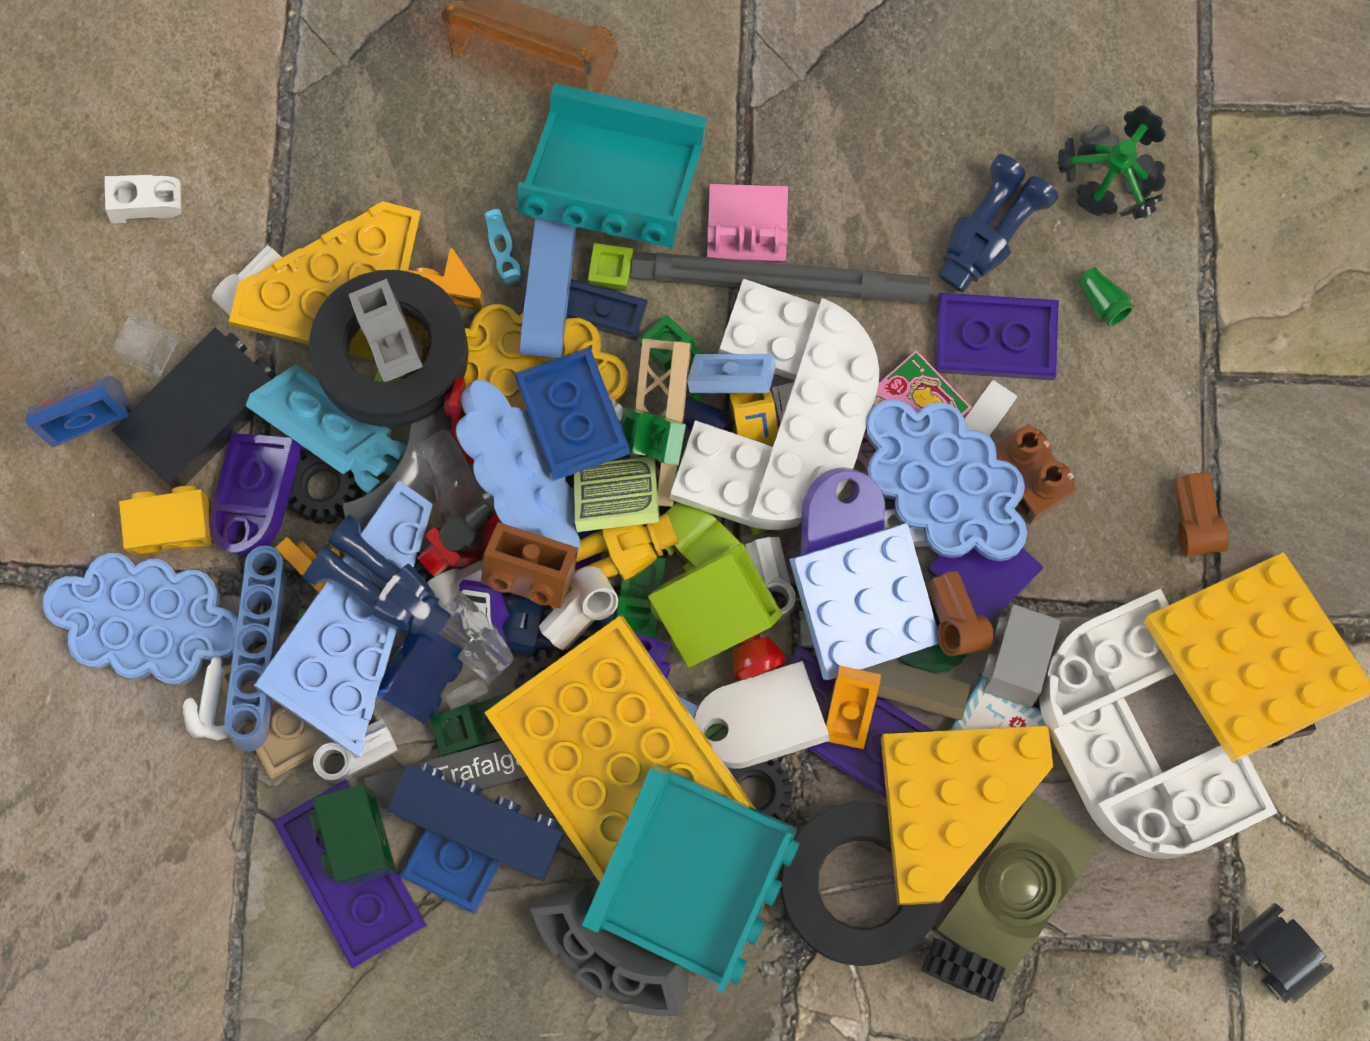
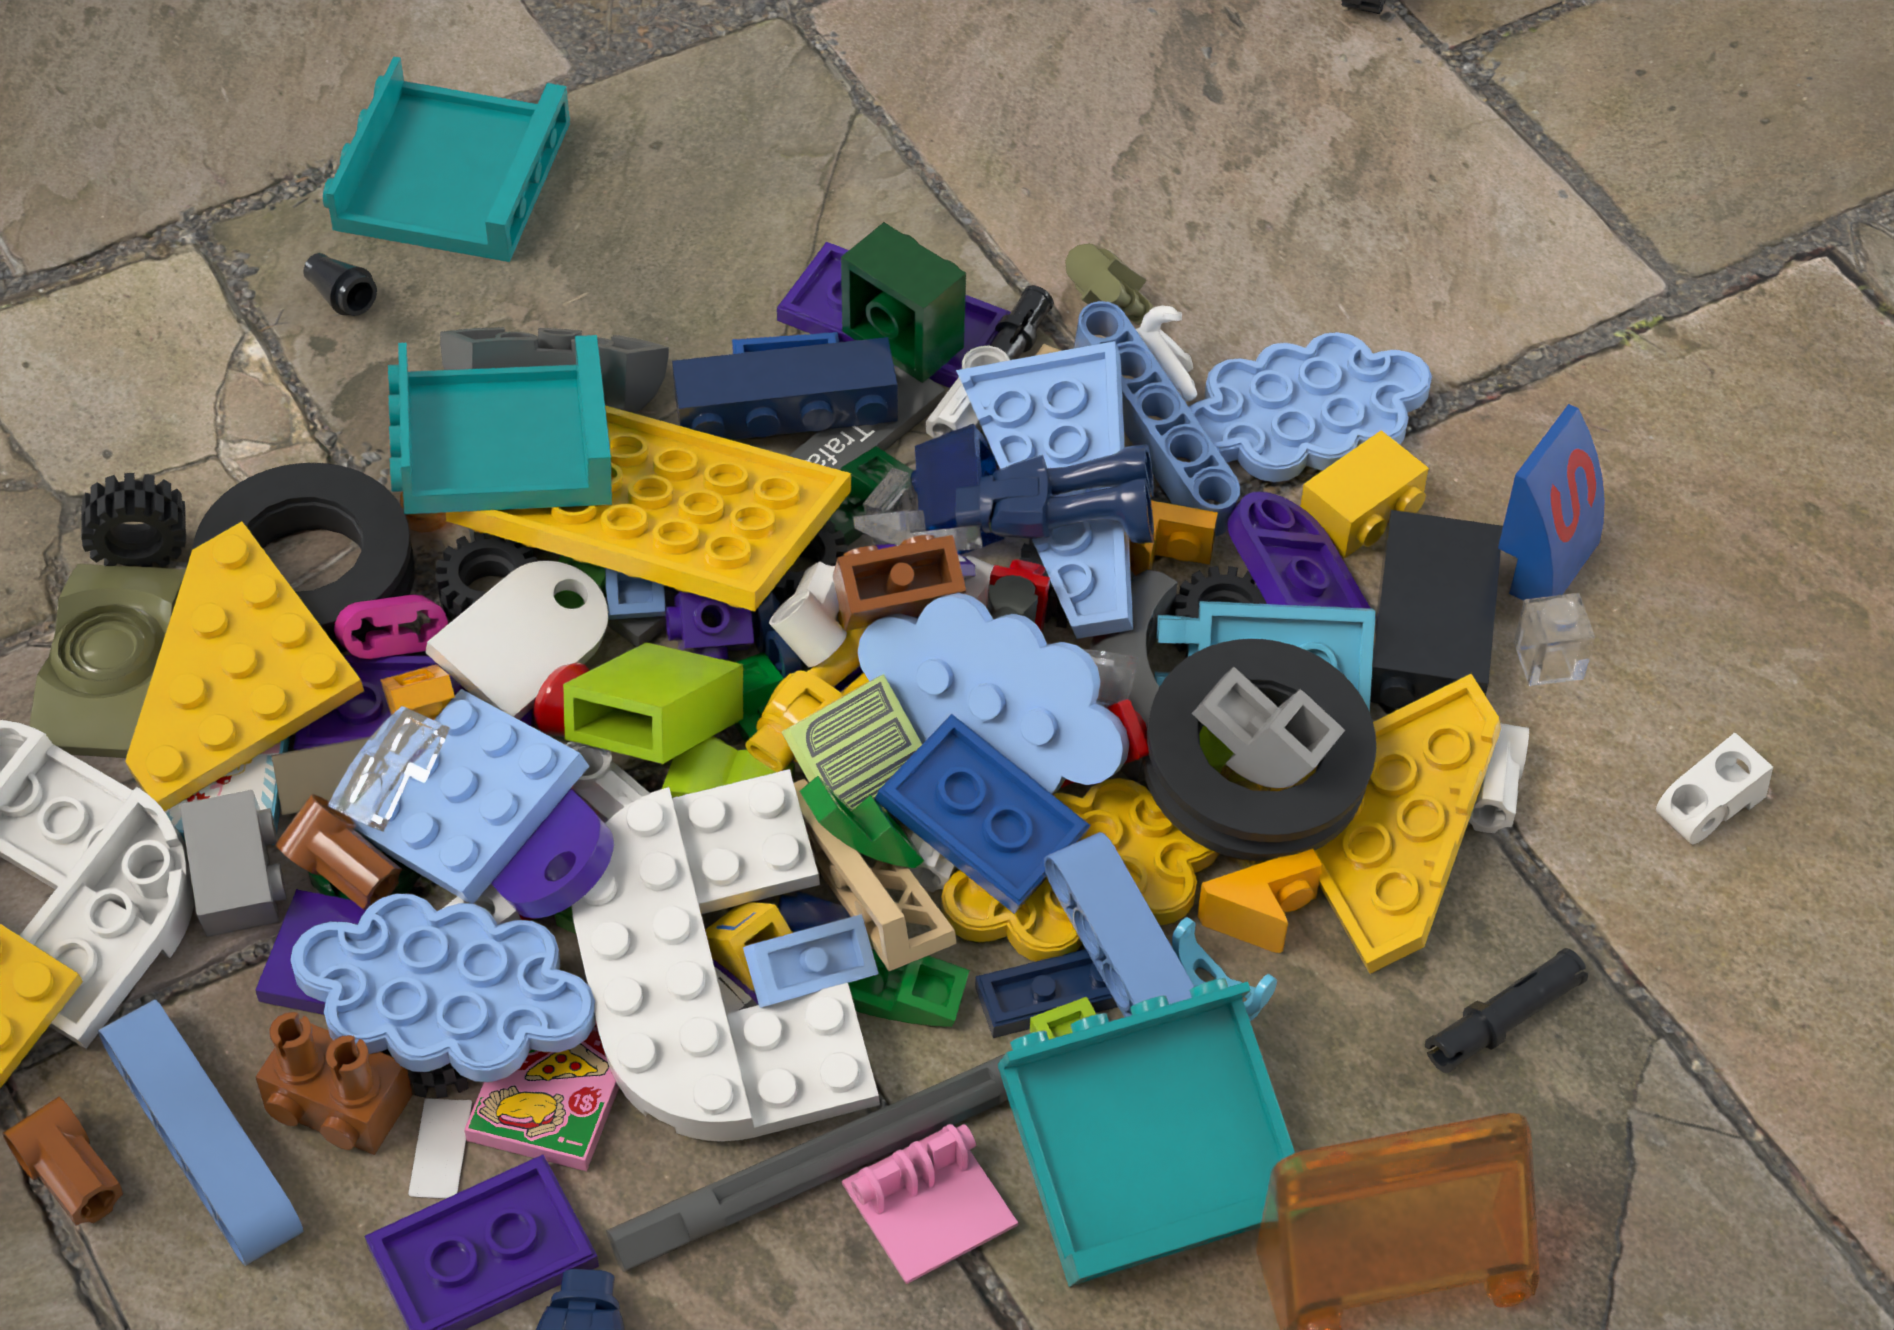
camera: 145 degrees right, 25 degrees down
(195, 794) = (1104, 277): none -> olive arm
(282, 799) = (1029, 313): none -> black pin
(366, 144) = (1489, 1022): none -> black pin
(836, 785) = (389, 613): none -> dark pink beam
(905, 636) = (377, 776): none -> clear slope
(1117, 492) = (201, 1132): none -> medium blue beam

